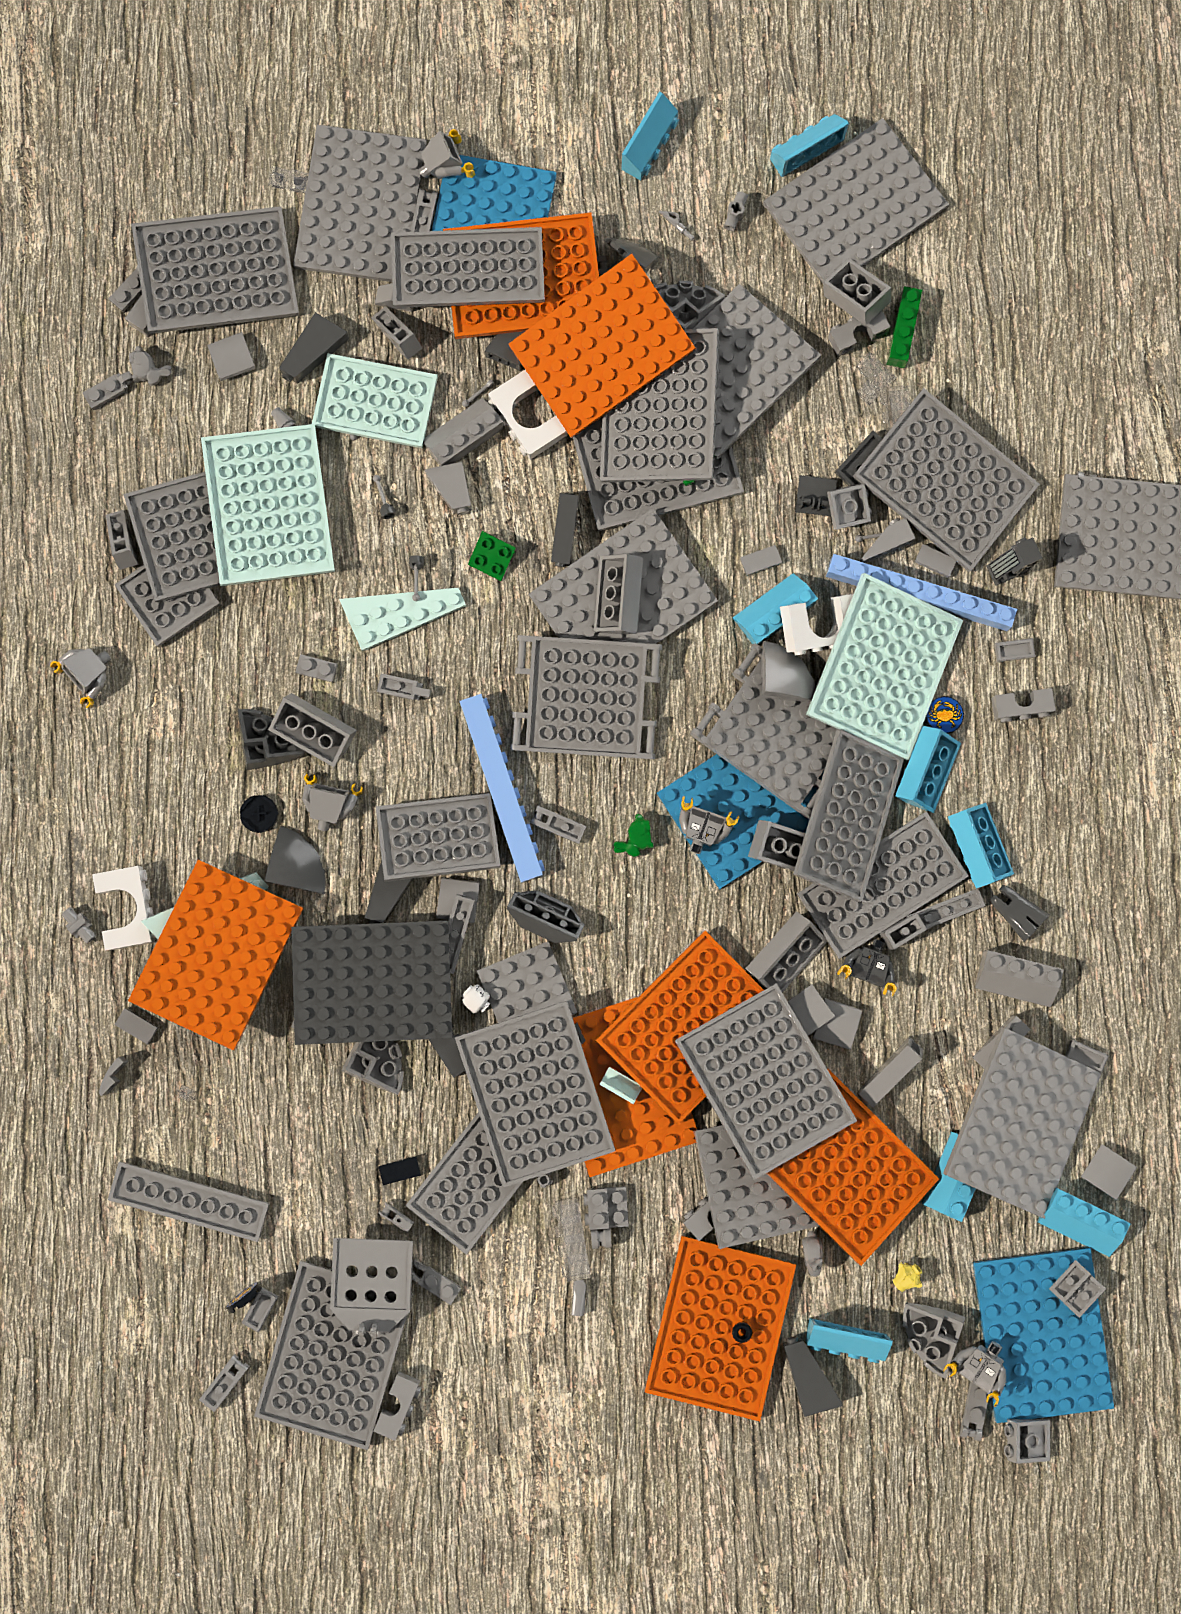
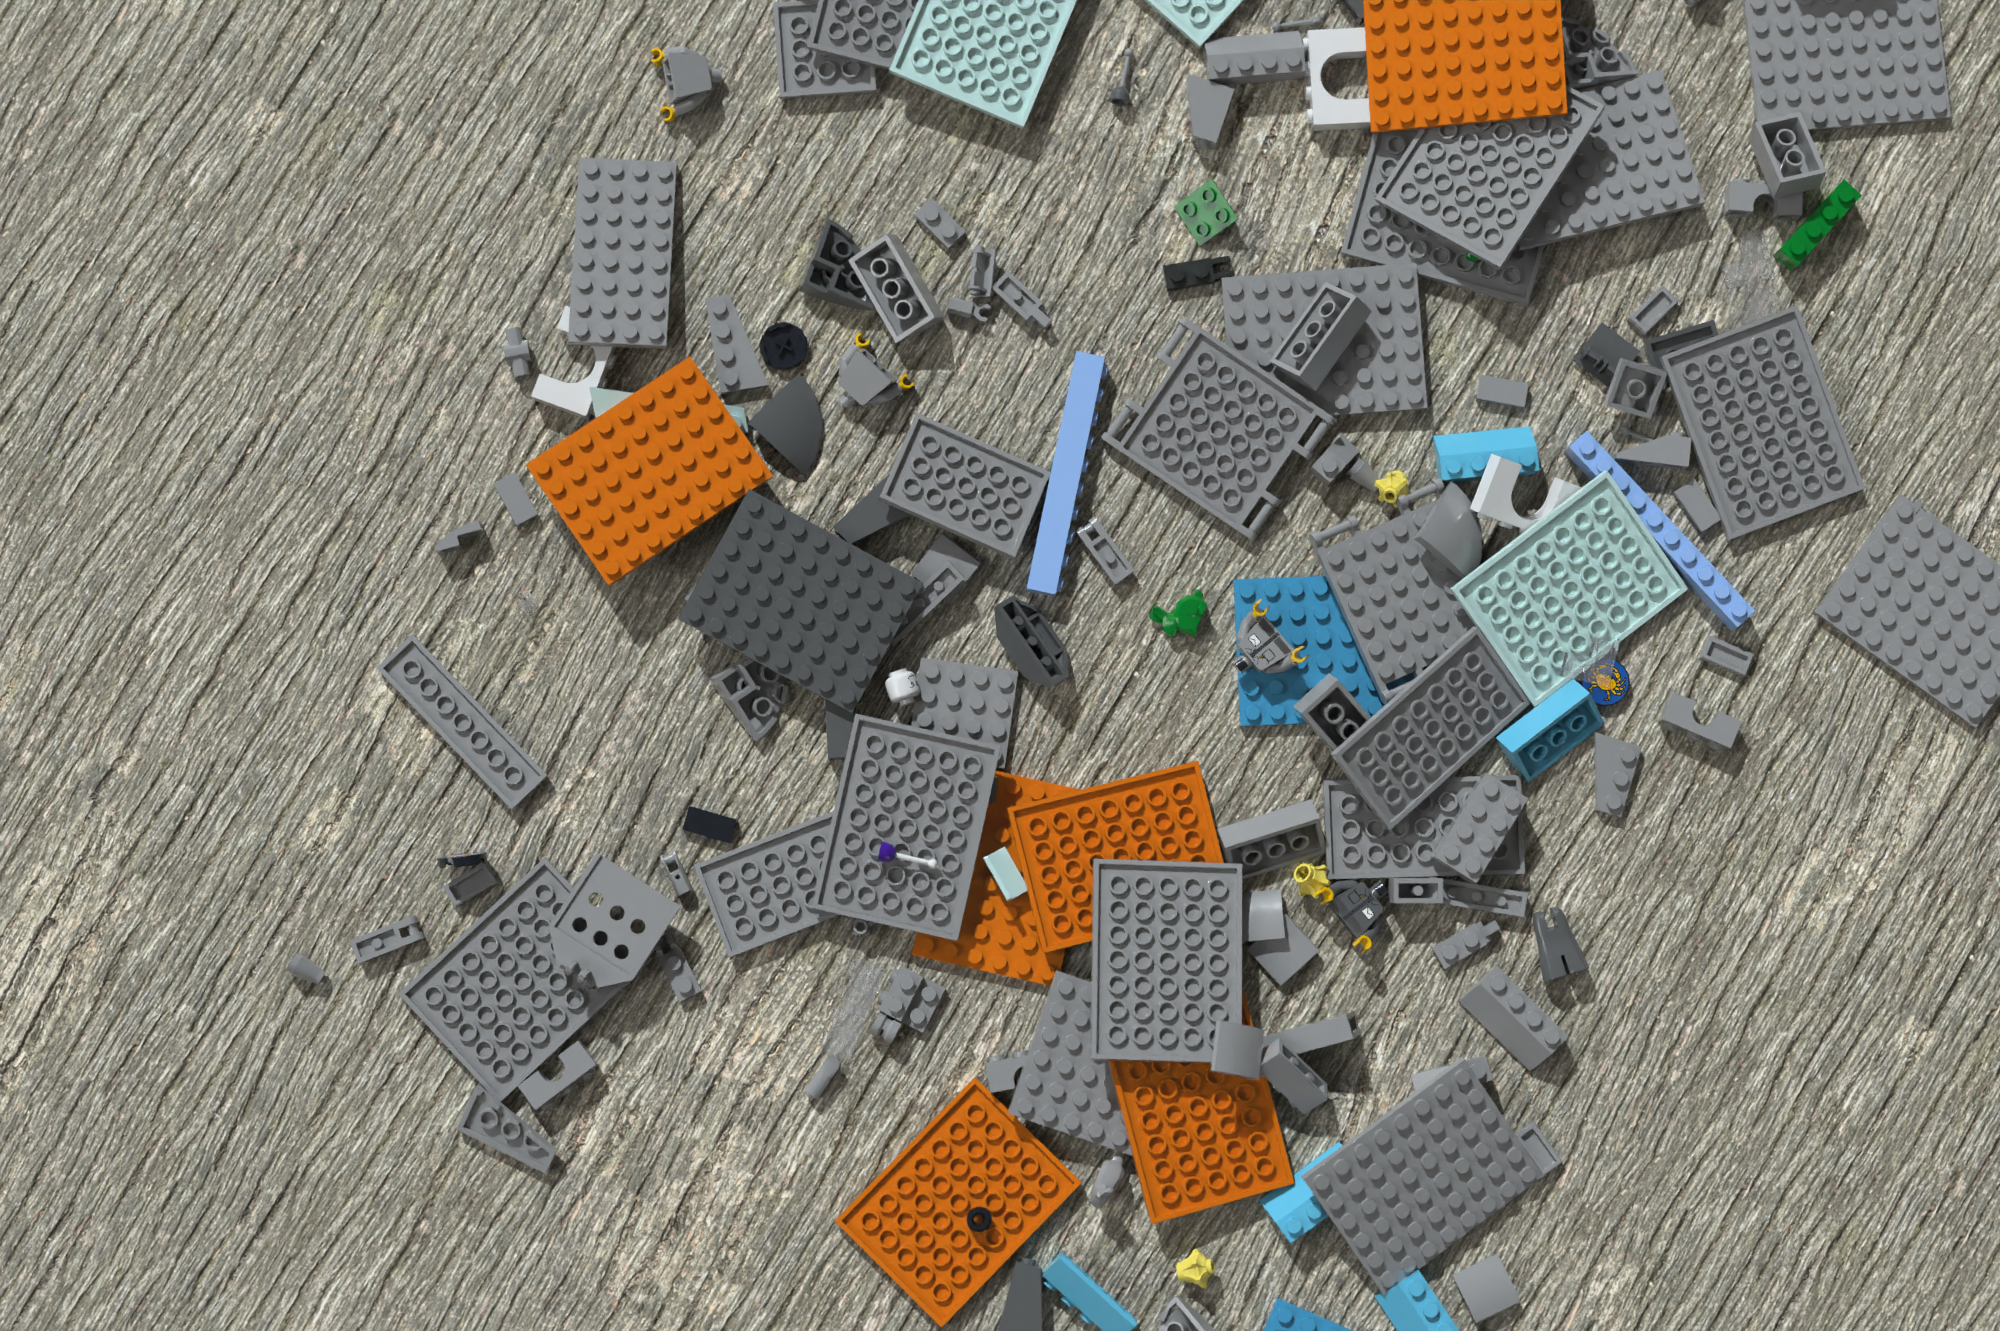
camera: 25 degrees right, 0 degrees up
(111, 815) = (622, 253): none -> light grey plate
(179, 1437) = (305, 969): none -> light grey cone
(225, 836) = (734, 356): none -> light grey wing
(366, 687) = (983, 274): none -> light grey hinge
(369, 715) = (967, 309): none -> light grey bar
(378, 1466) = (503, 1130): none -> light grey wing
(390, 615) = (1055, 213): light aqua wing -> none
(416, 563) = (1118, 172): hinge -> none
(508, 601) = (1194, 273): none -> pearl dark grey hinge
(533, 1119) = (888, 853): none -> hinge
(565, 528) = (1305, 229): dark grey slope -> none
(676, 672) = (1334, 460): none -> light grey slope
(700, 670) = (1363, 474): none -> light grey cone
(726, 667) = (1392, 486): none -> light yellow rock
(828, 447) = (1652, 310): none -> light grey tile
(828, 965) = (1311, 879): none -> light yellow rock
(849, 1114) = (1237, 1050): none -> light grey slope
(895, 1108) = (1292, 1077): none -> light grey brick
(920, 864) = (1479, 828): none -> light grey brick
(933, 709) = (1596, 667): none -> clear plate
(955, 946) = (1464, 943): none -> light grey hinge
(980, 845) = (1559, 848): medium azure slope -> none
(987, 772) = (1615, 768): none -> light grey wing
(1015, 561) = (1784, 557): dark grey wedge -> none

